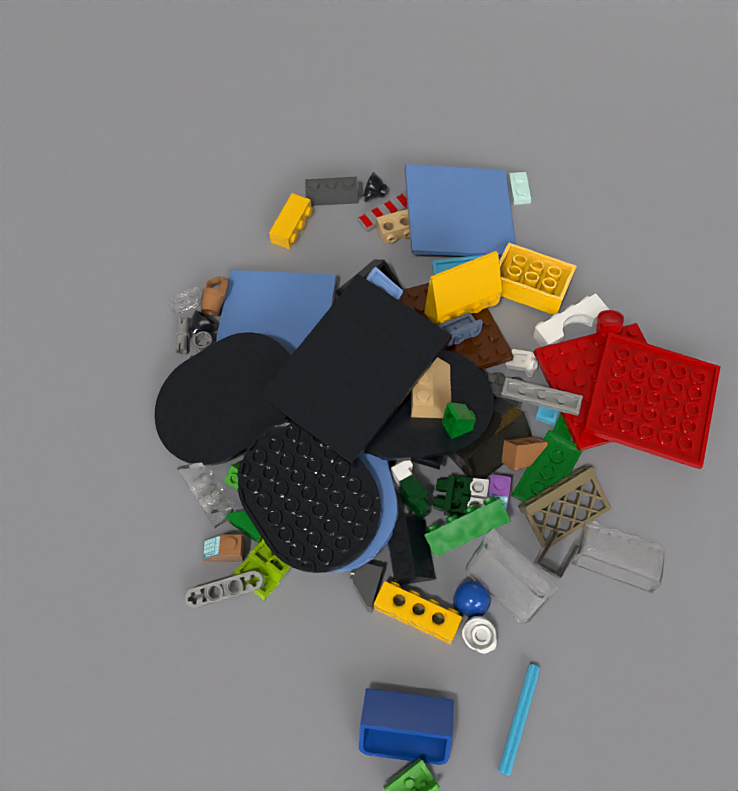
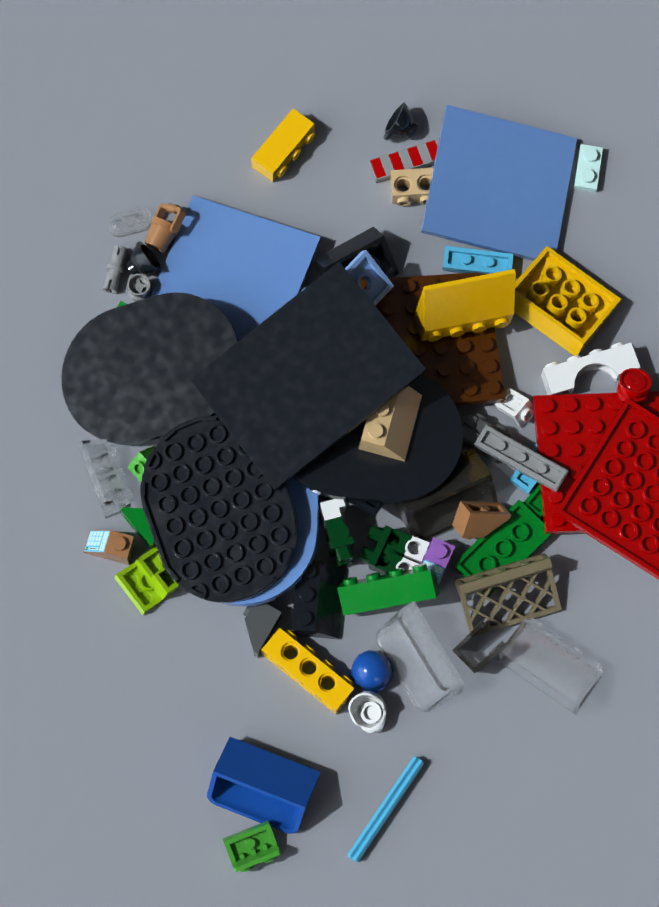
camera: 10 degrees right, 10 degrees up
(224, 586) = (101, 592): light grey beam -> none
(332, 191) = (345, 115): dark grey brick -> none
(458, 419) = (410, 467): green slope -> none
(462, 328) = (448, 350): sand blue bracket -> none

